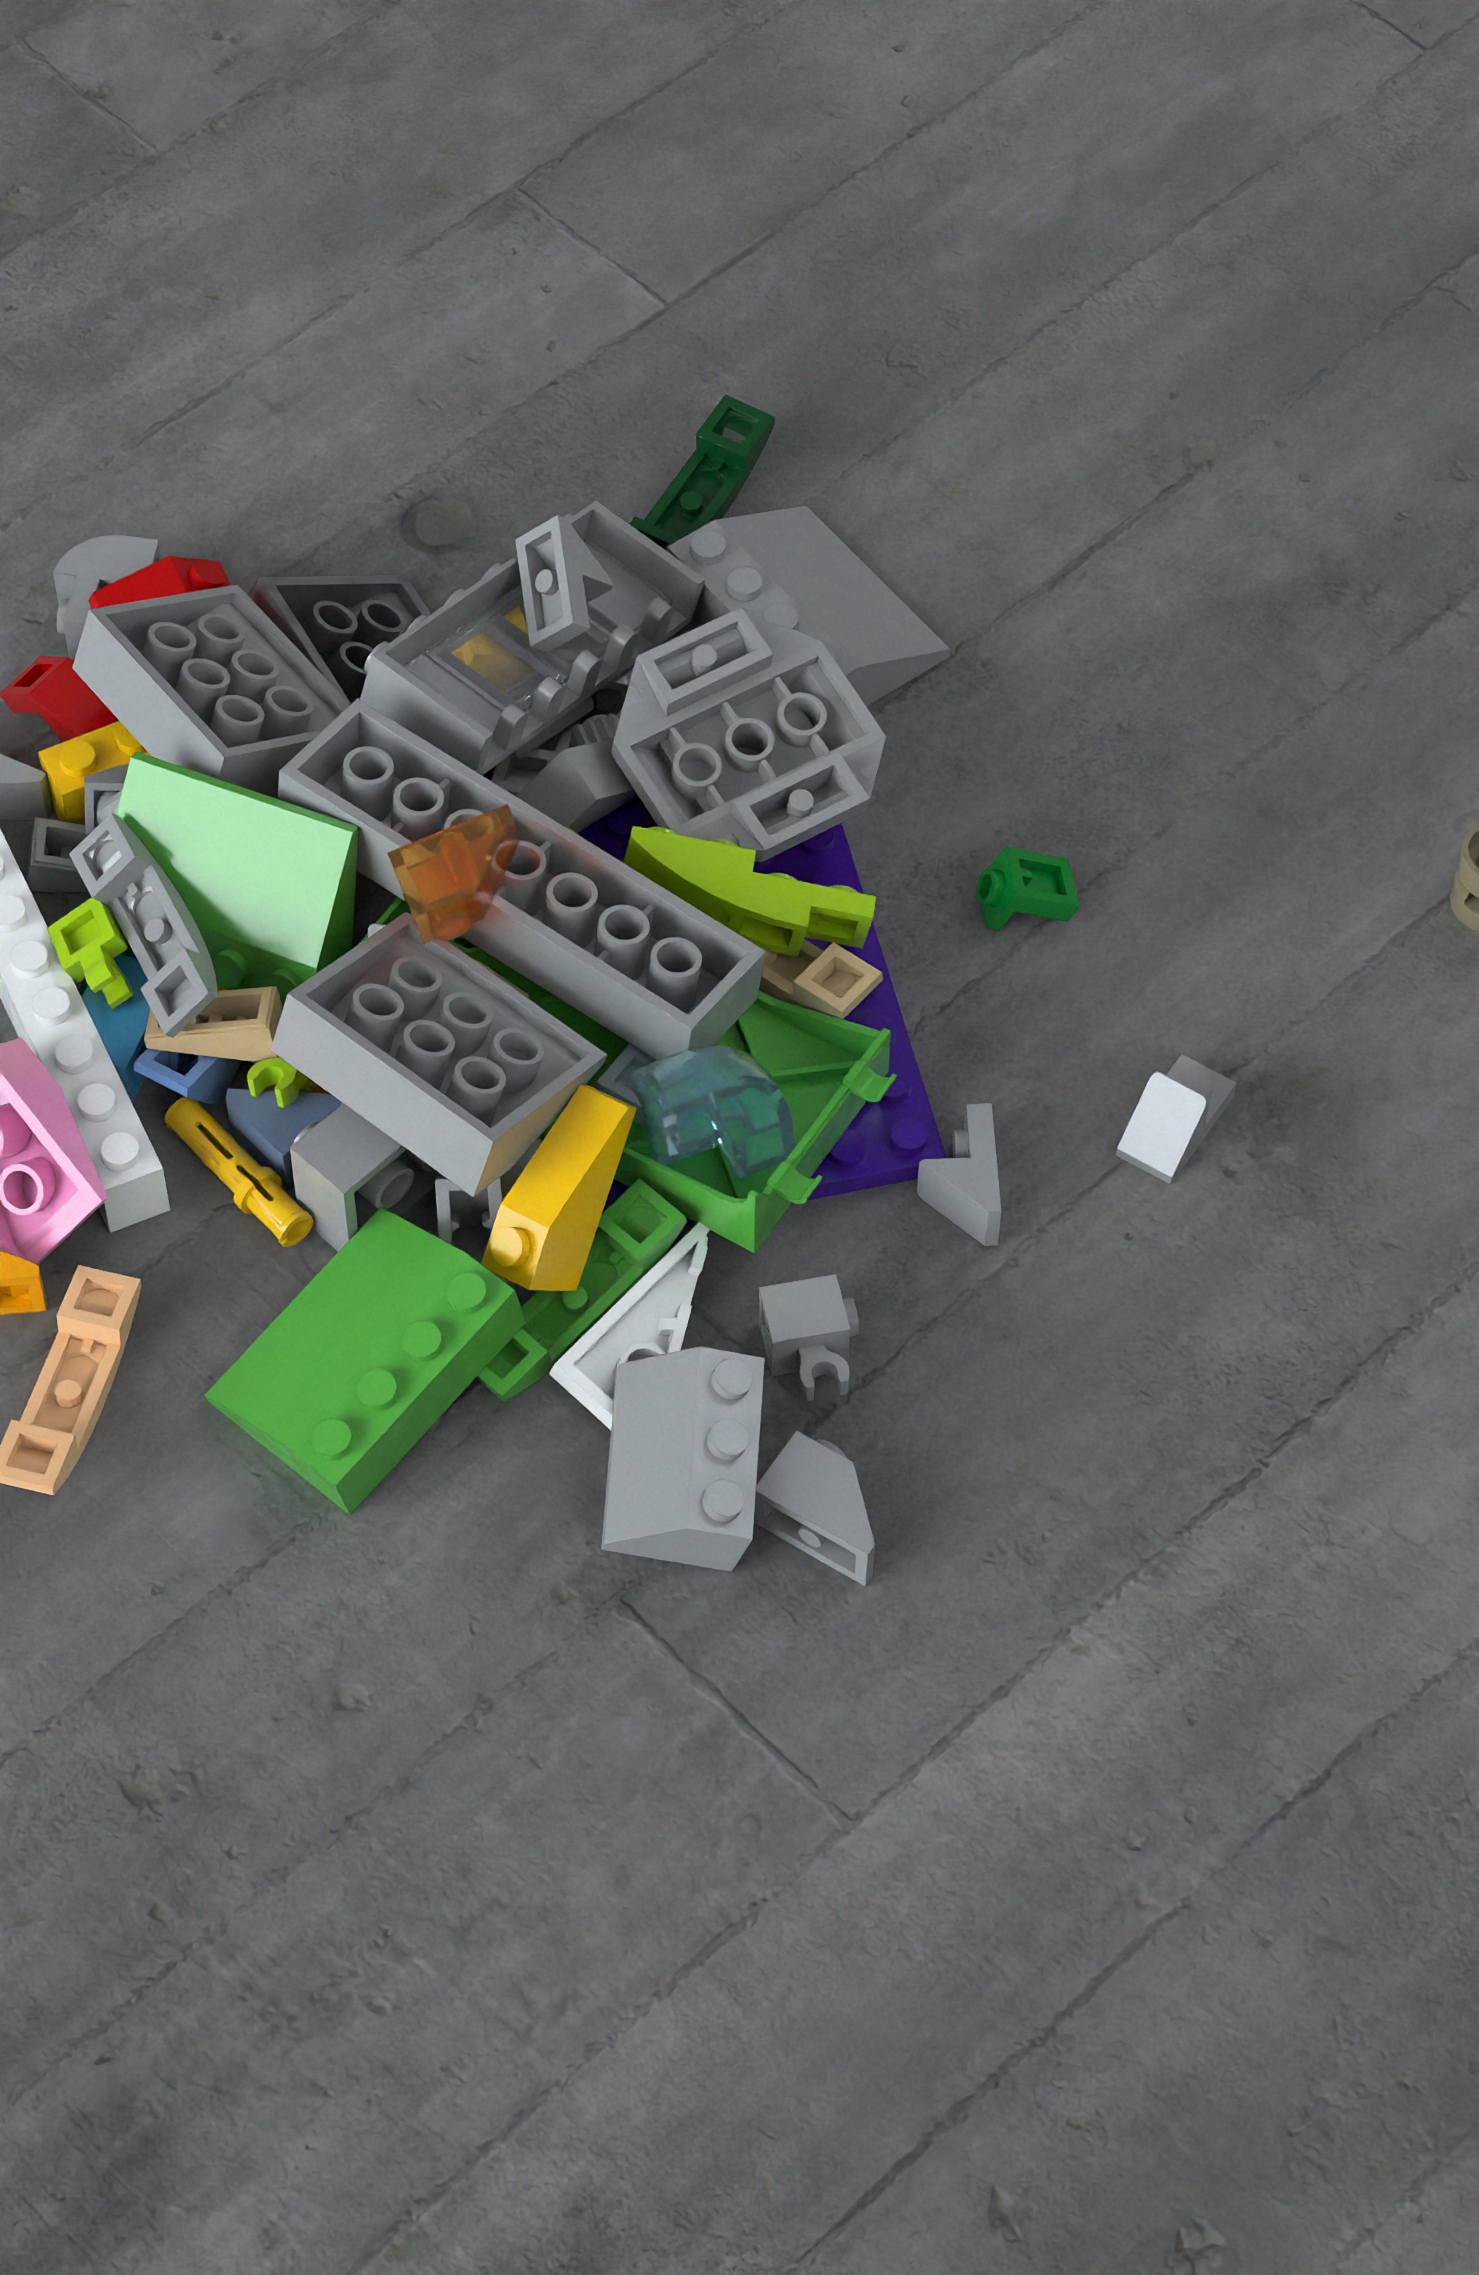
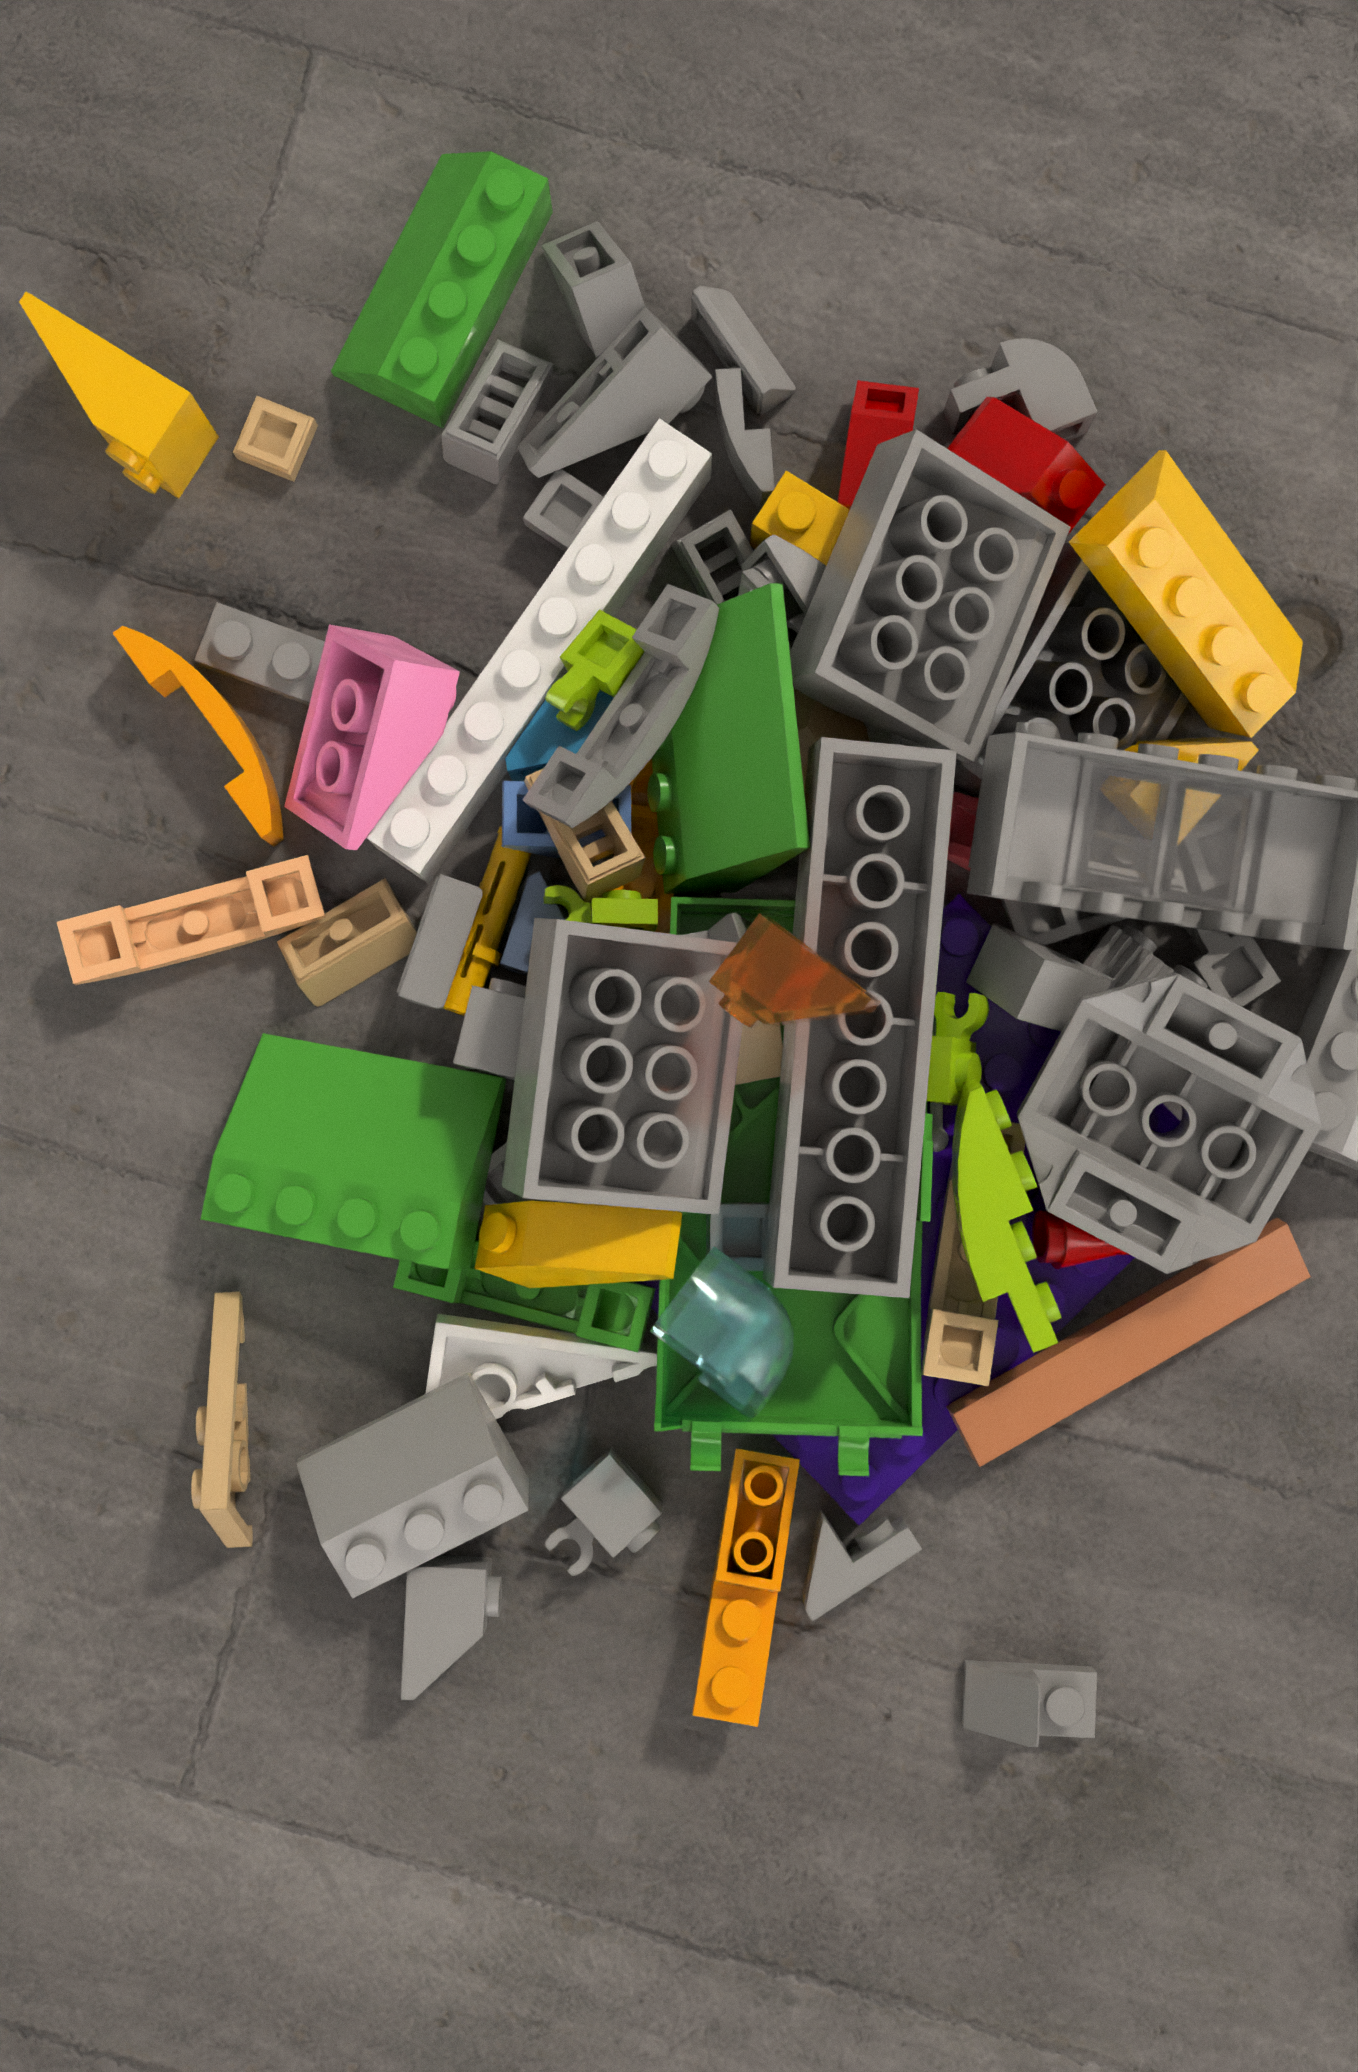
camera: 65 degrees right, 30 degrees up
(177, 1288) = (349, 943): none -> tan slope
(231, 1204) = (439, 942): none -> light grey slope
(353, 551) = (1193, 599): none -> yellow slope
(551, 1590) = (224, 1428): none -> tan wing
(557, 583) = (1244, 824): light grey slope -> none
(812, 859) = (1065, 1244): none -> red cone
(918, 897) = (1126, 1343): none -> nougat tile
(935, 1263) = (745, 1587): none -> light orange slope
(1028, 885) = (1196, 1433): green bracket -> none

